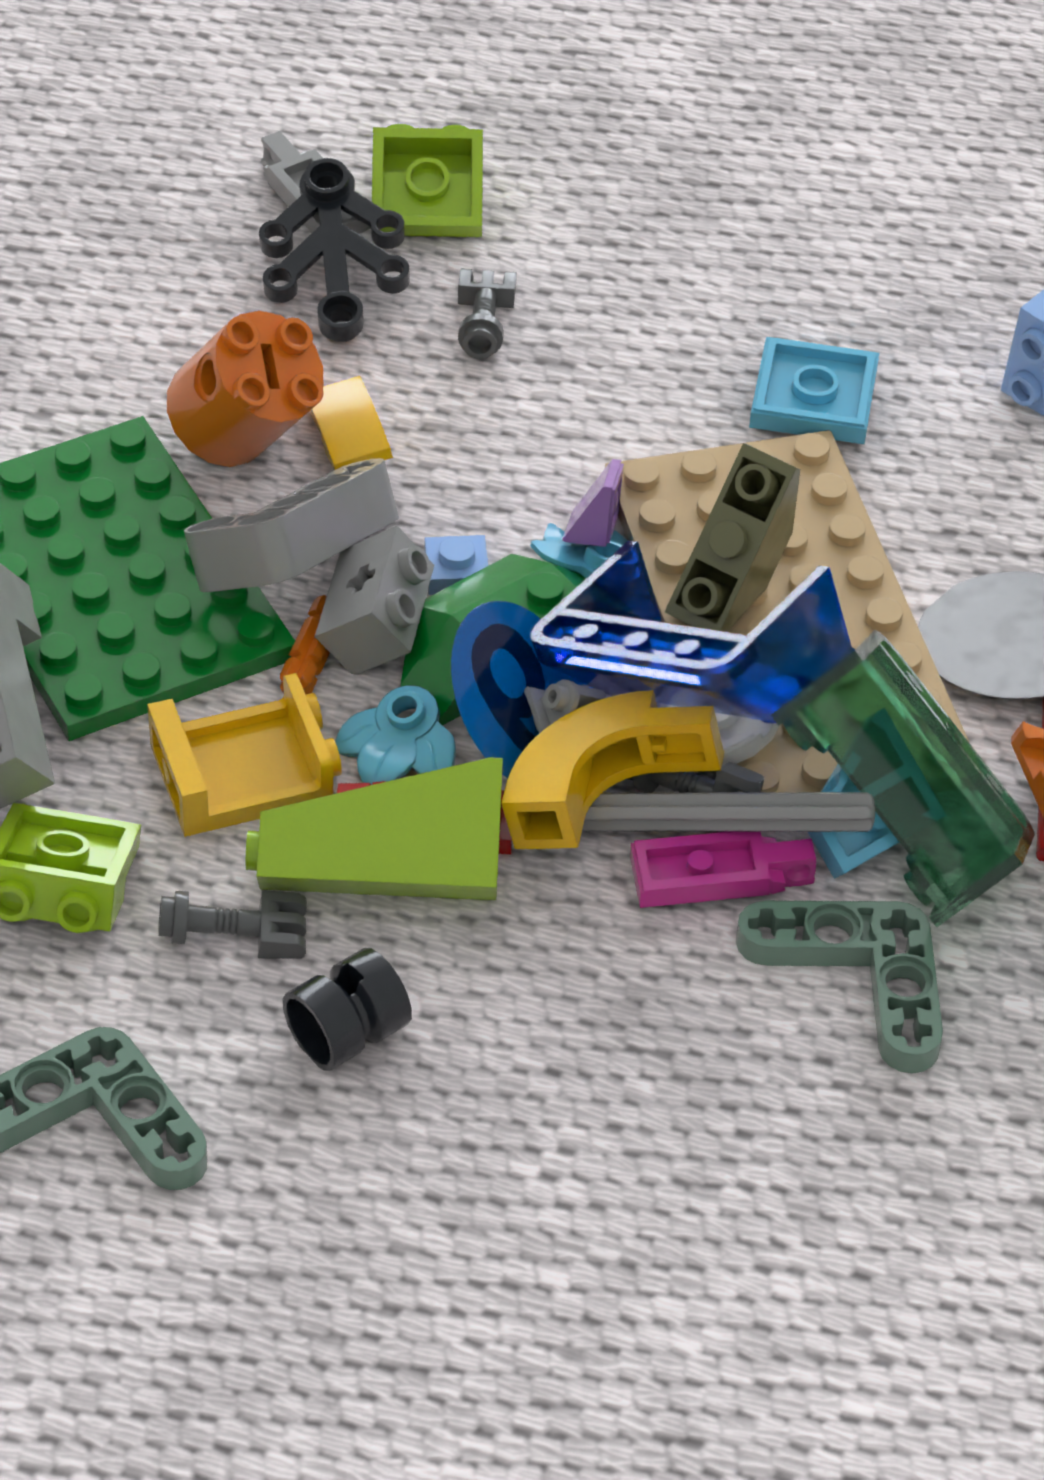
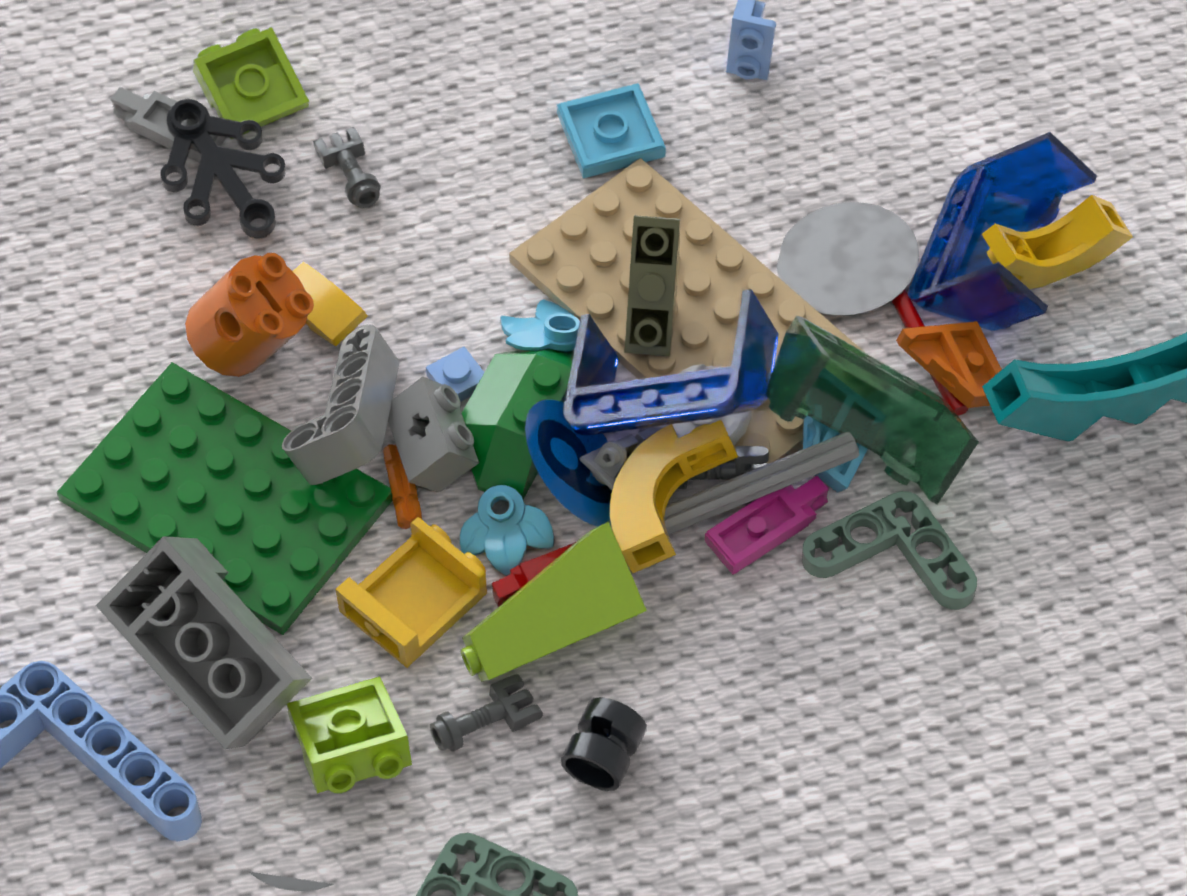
camera: 25 degrees left, 10 degrees up
(598, 510) = (532, 294): medium lavender slope -> none

